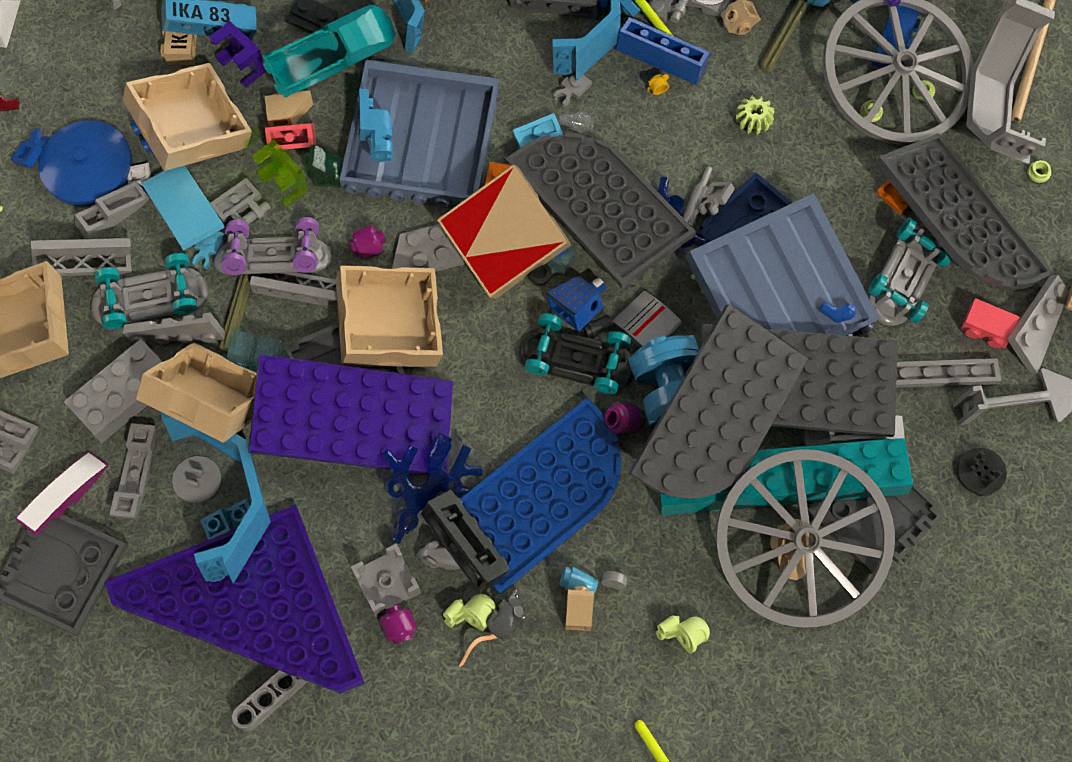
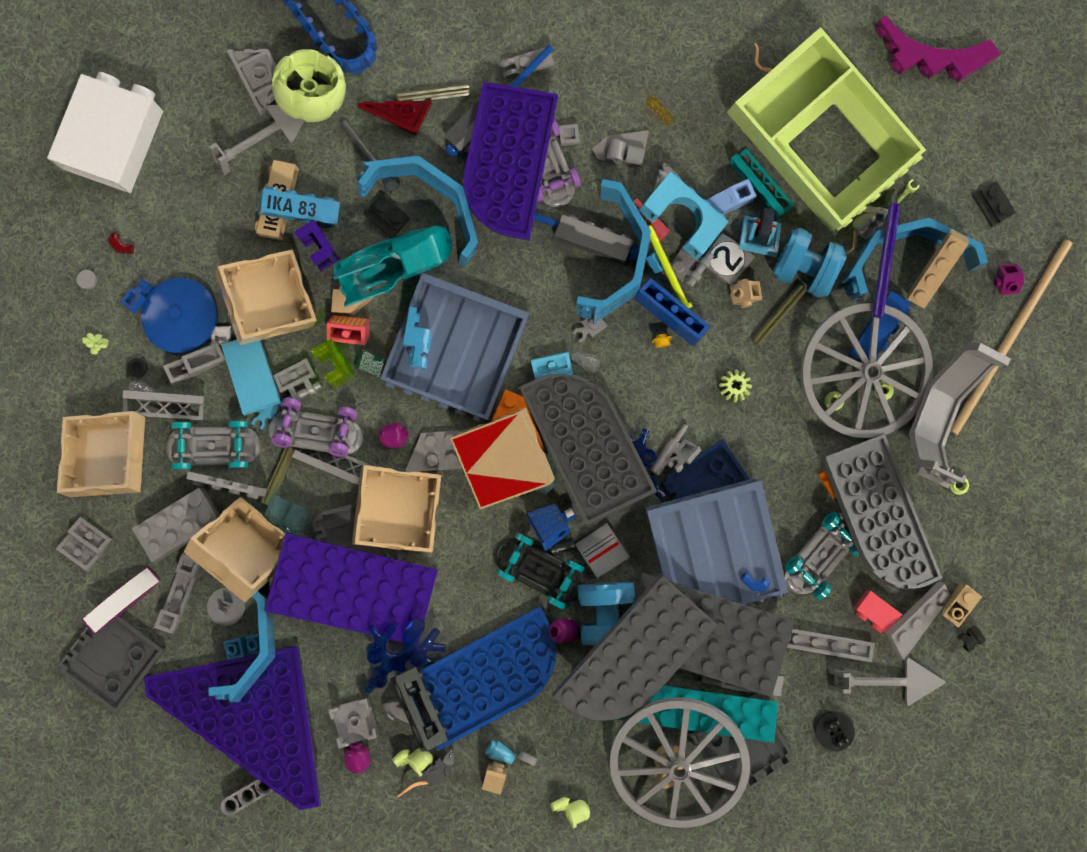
camera: 15 degrees right, 15 degrees up
(42, 228) = (137, 367): none -> pearl dark grey tile

